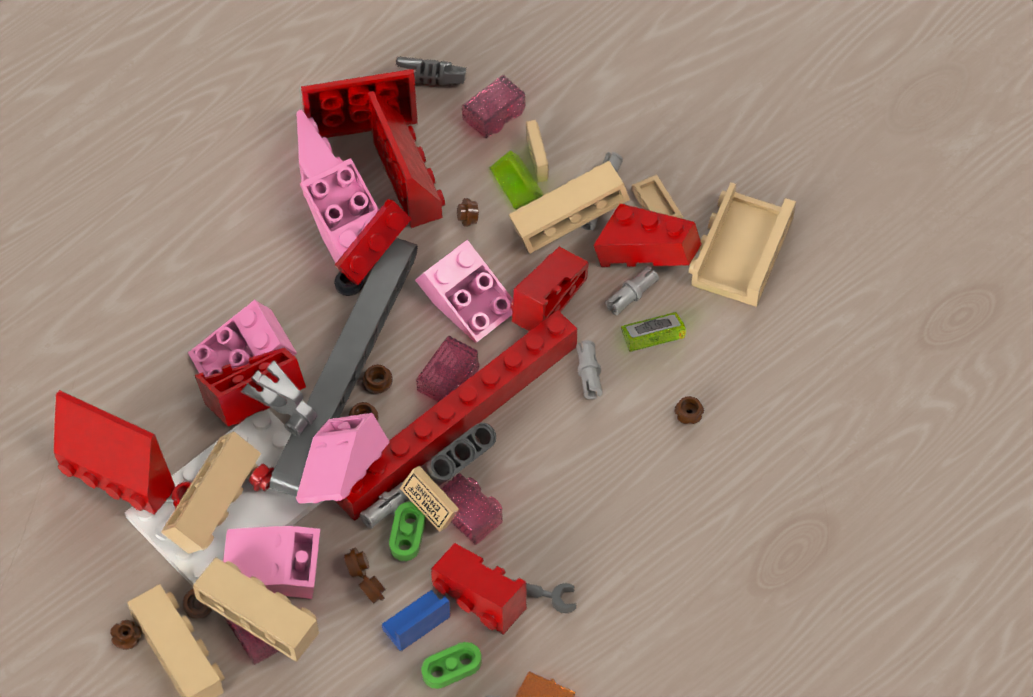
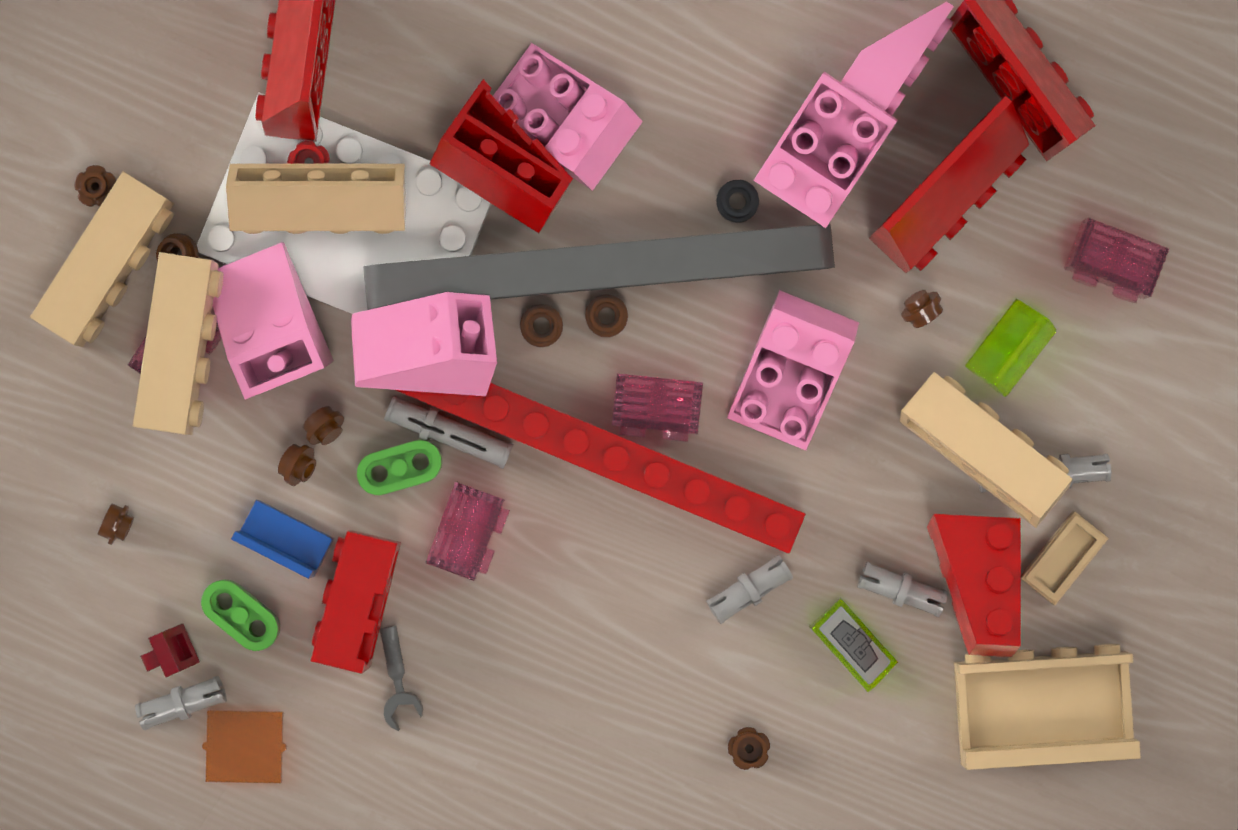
camera: 65 degrees right, 30 degrees up
(261, 478) = (377, 248): red plate -> none
(290, 402) = (470, 233): dark grey piece -> none
(373, 241) = (794, 213): red plate -> none
(429, 498) = (445, 480): tan tile -> none
(433, 71) = (1135, 141): dark grey hinge -> none
(466, 447) = (542, 498): dark grey beam -> none
(537, 150) = (1068, 355): tan tile -> none
(548, 288) = (843, 481): red wedge -> none

